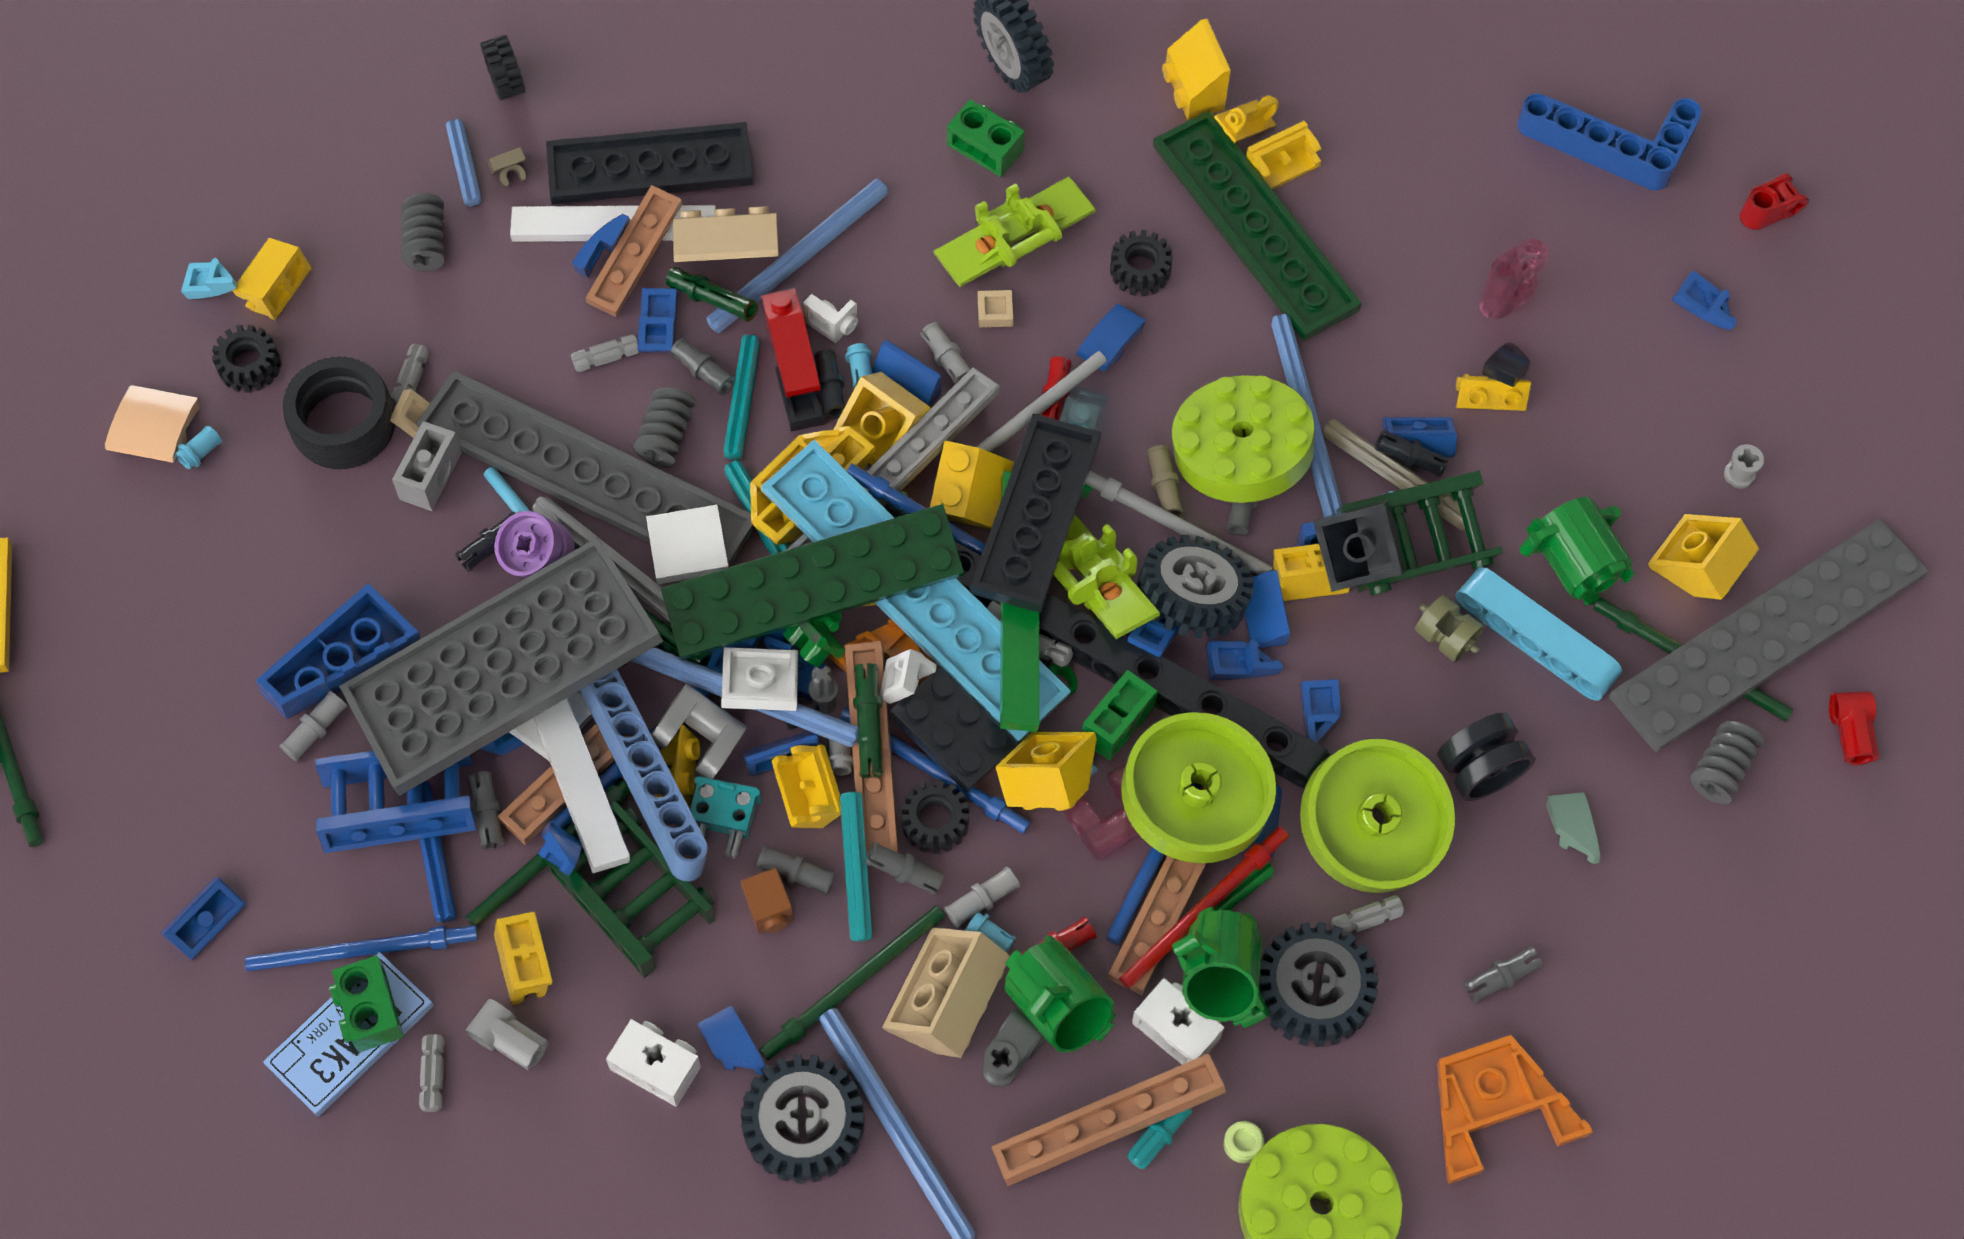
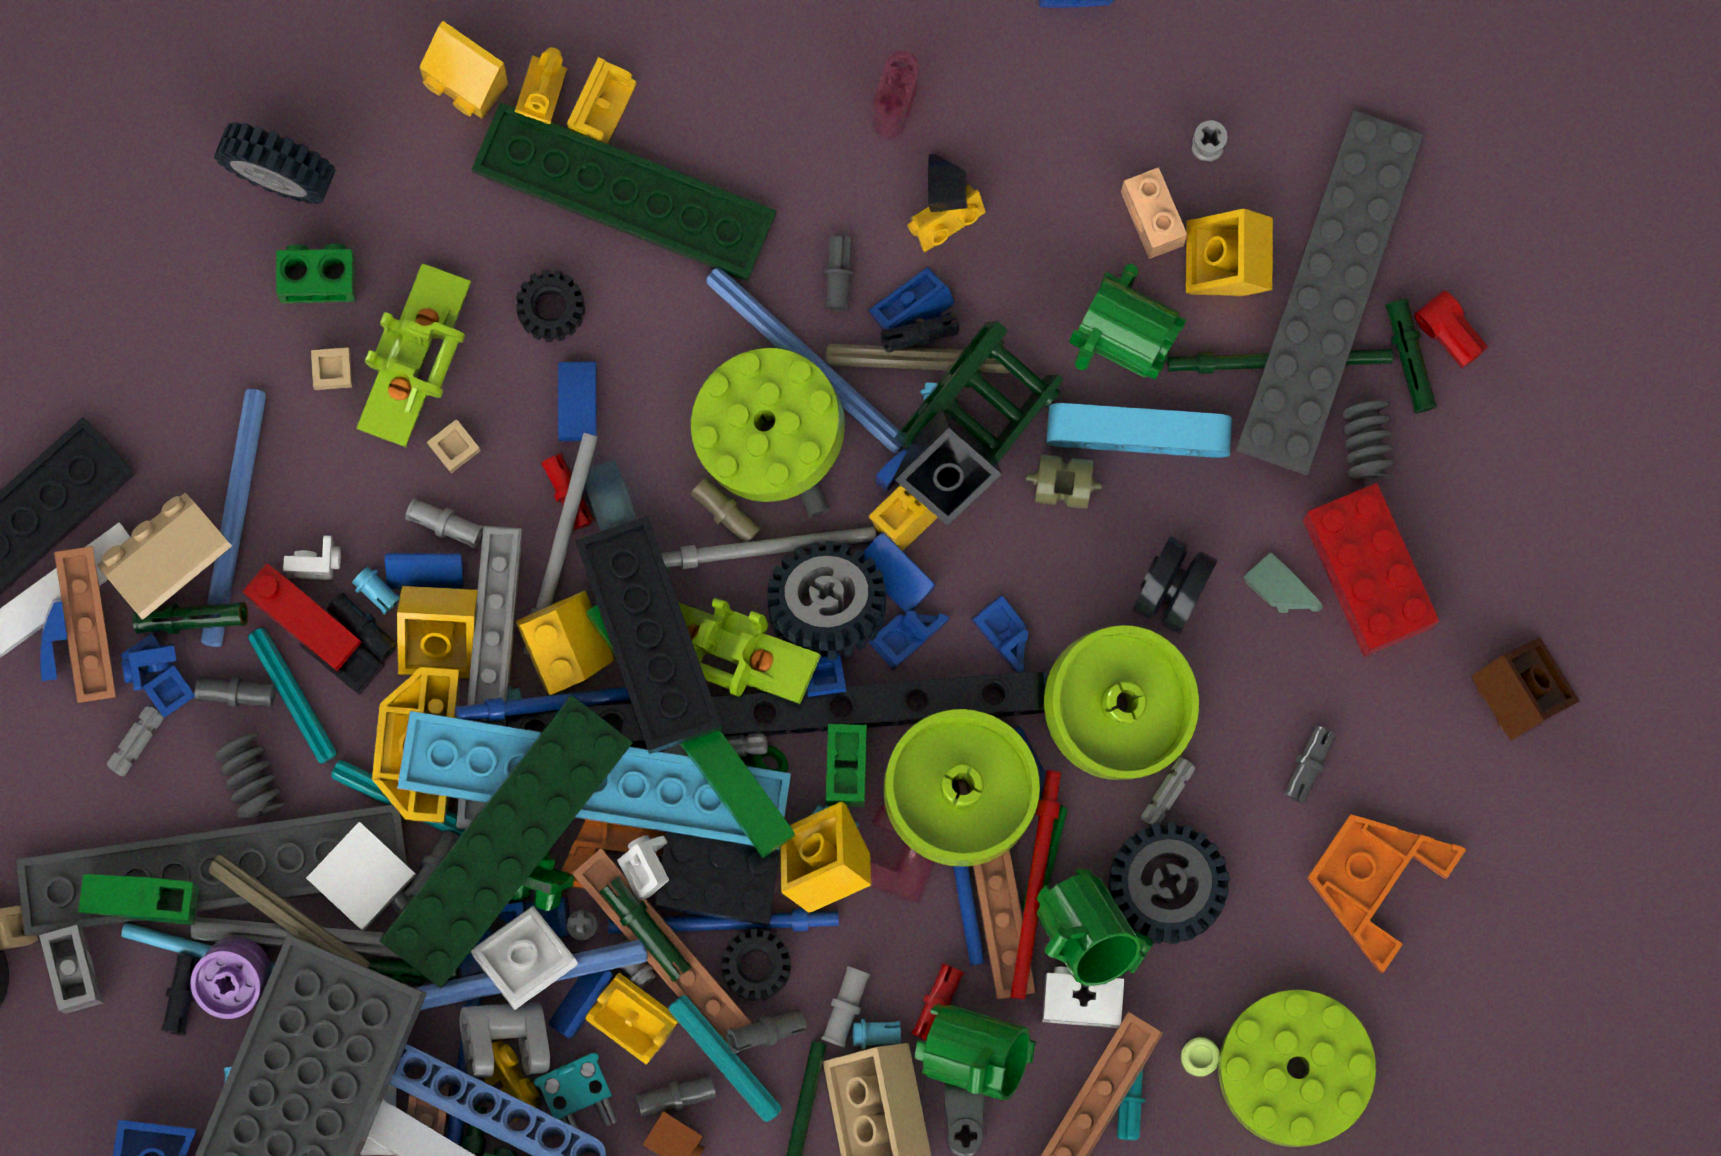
camera: 40 degrees left, 15 degrees up
(518, 449) = (139, 898): none -> green slope
(607, 521) = (279, 909): none -> dark tan axle
(662, 300) = (153, 658): none -> blue bracket
(947, 203) = (331, 368): none -> tan plate
(1377, 378) = (838, 273): none -> dark grey axle
(1660, 859) = (1370, 569): none -> red brick
(1662, 487) = (1153, 213): none -> light nougat brick
(1732, 1038) = (1524, 688): none -> reddish brown slope
(1810, 711) = (1410, 354): none -> dark green pin

